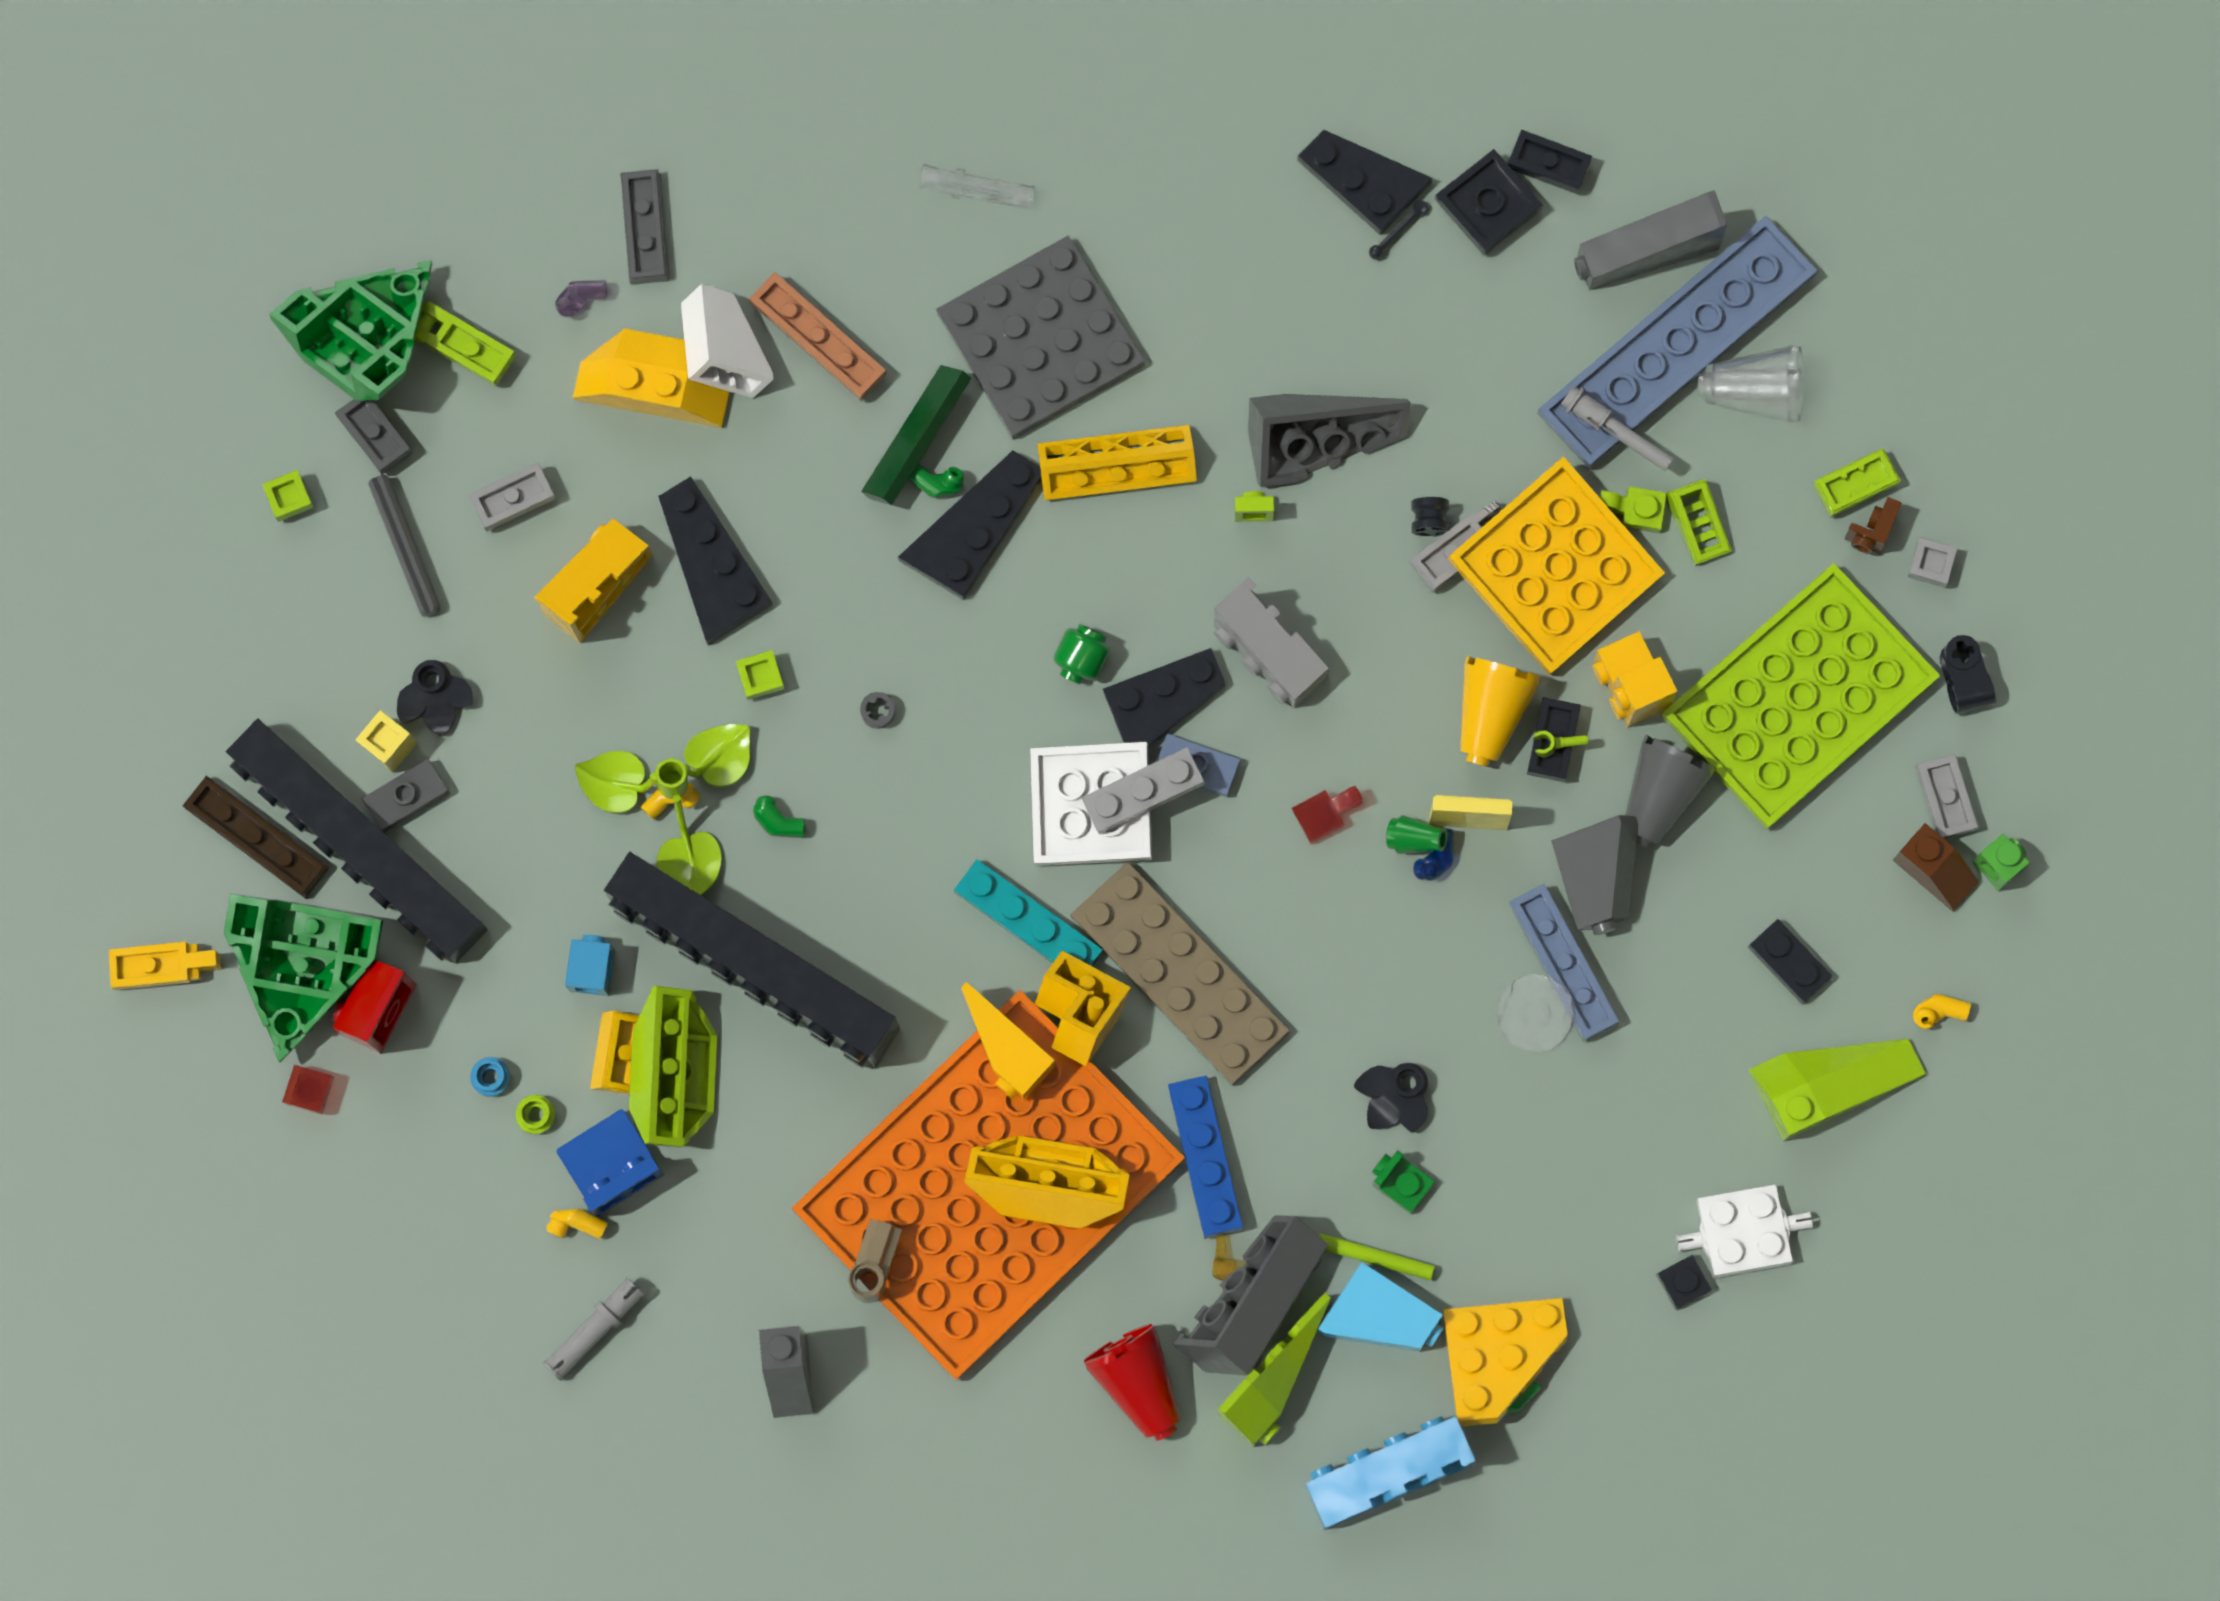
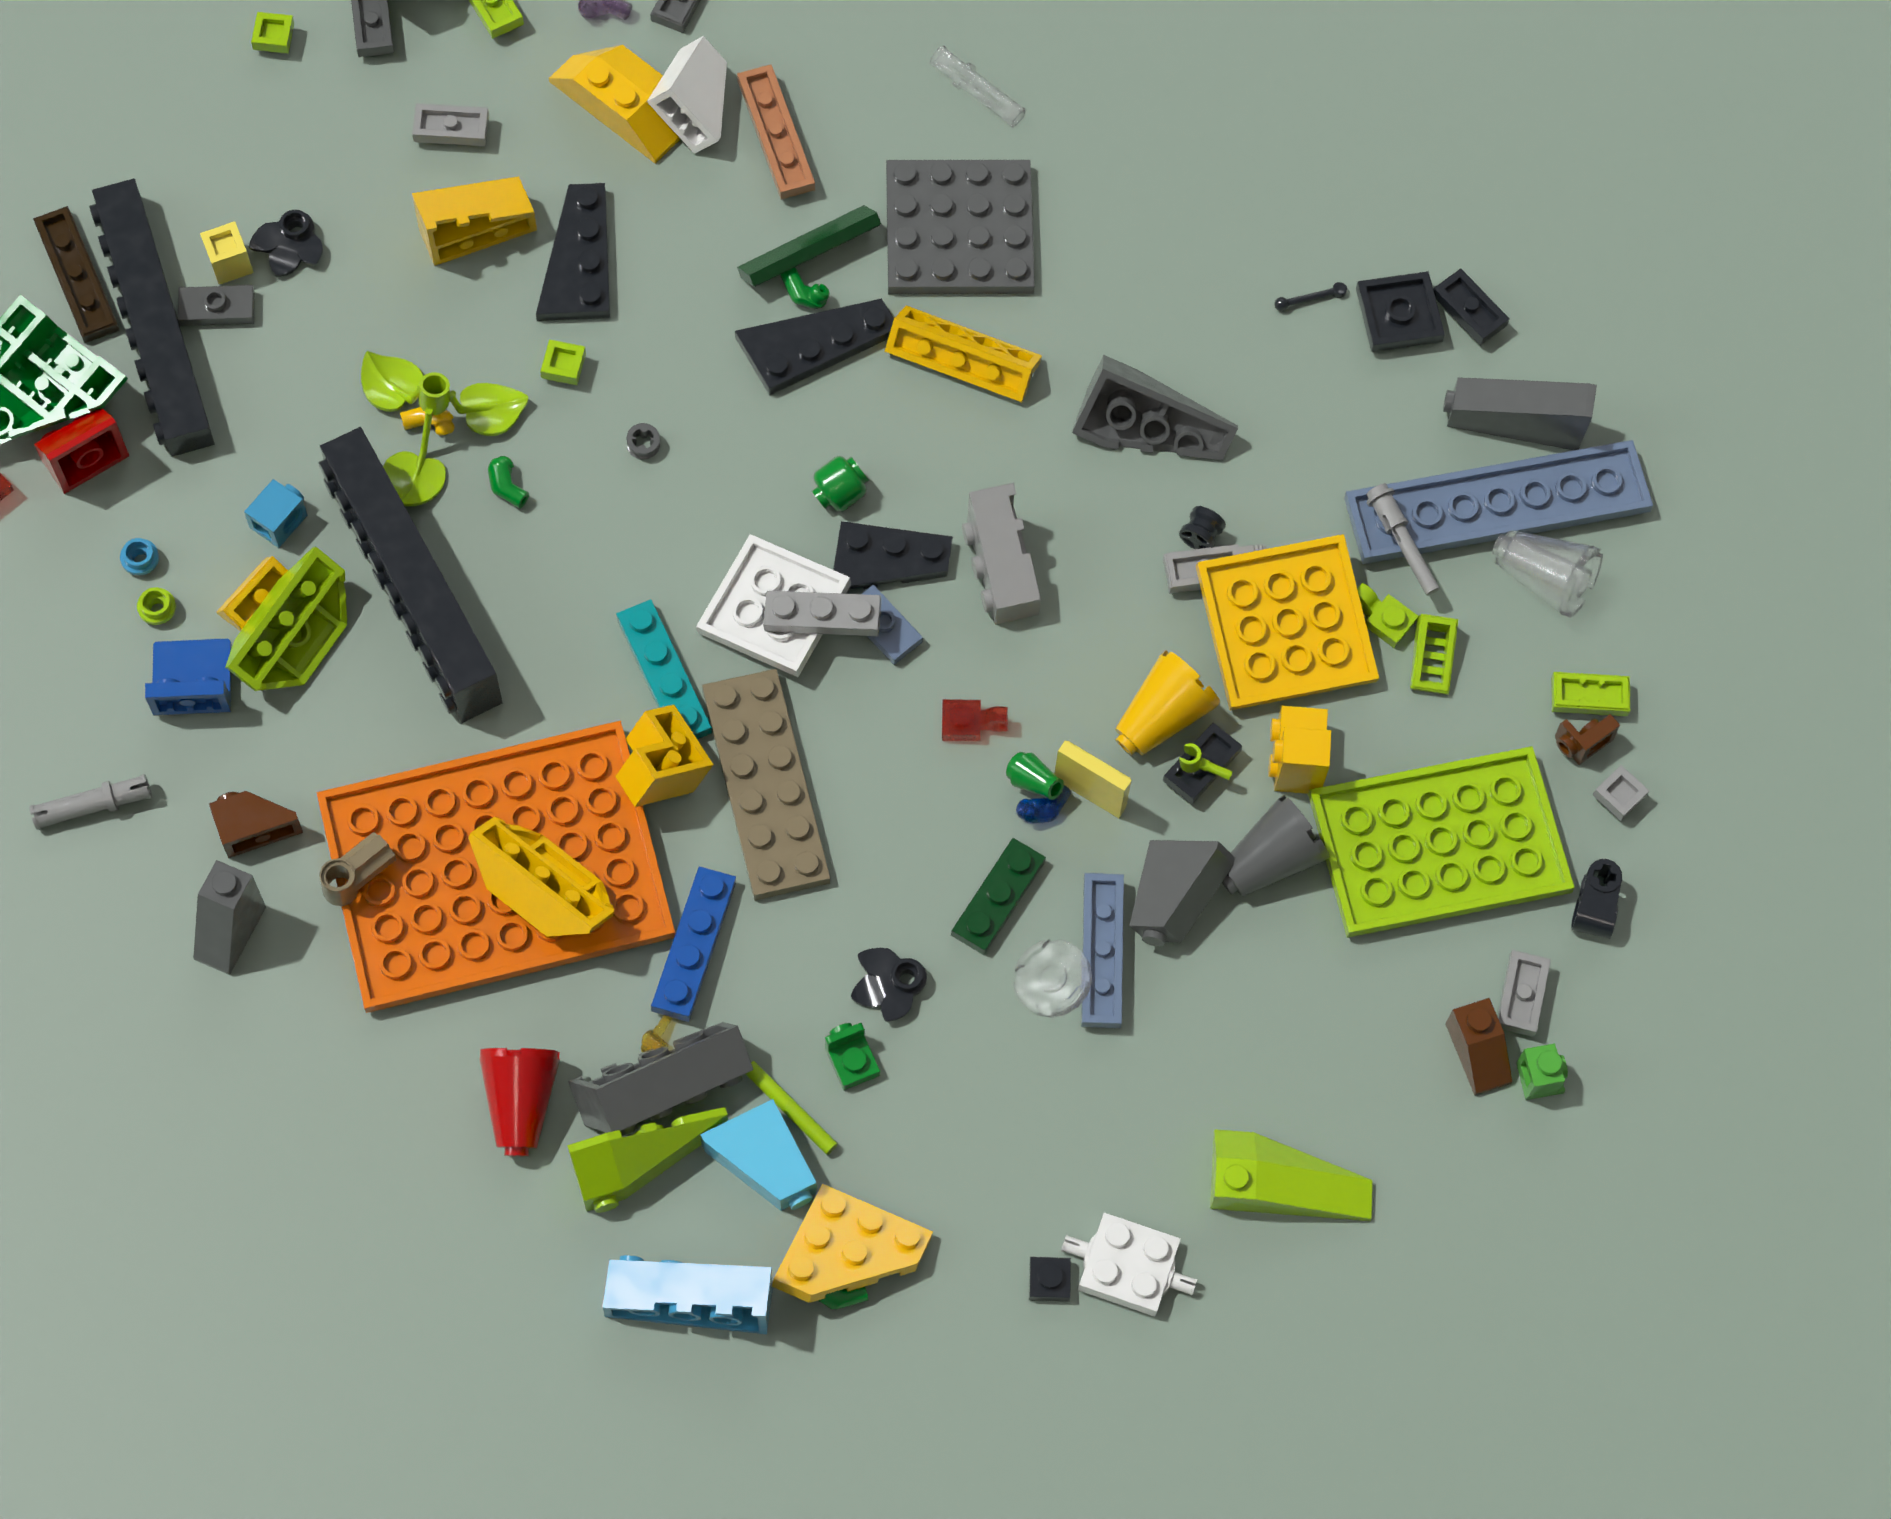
camera: 20 degrees right, 10 degrees down
(404, 545) = (340, 118): dark grey axle -> none
(577, 1219) = (135, 706): yellow arm -> none
(748, 1267) = (251, 822): none -> reddish brown slope
(1012, 1054) = (577, 761): yellow slope -> none
(1254, 507) = (1056, 445): lime plate -> none
(1363, 179) = (1304, 243): black wing -> none
(1444, 962) = (998, 896): none -> dark green plate
(1789, 961) = (1303, 1058): black plate -> none
(1937, 1007) = (1414, 1167): yellow arm -> none

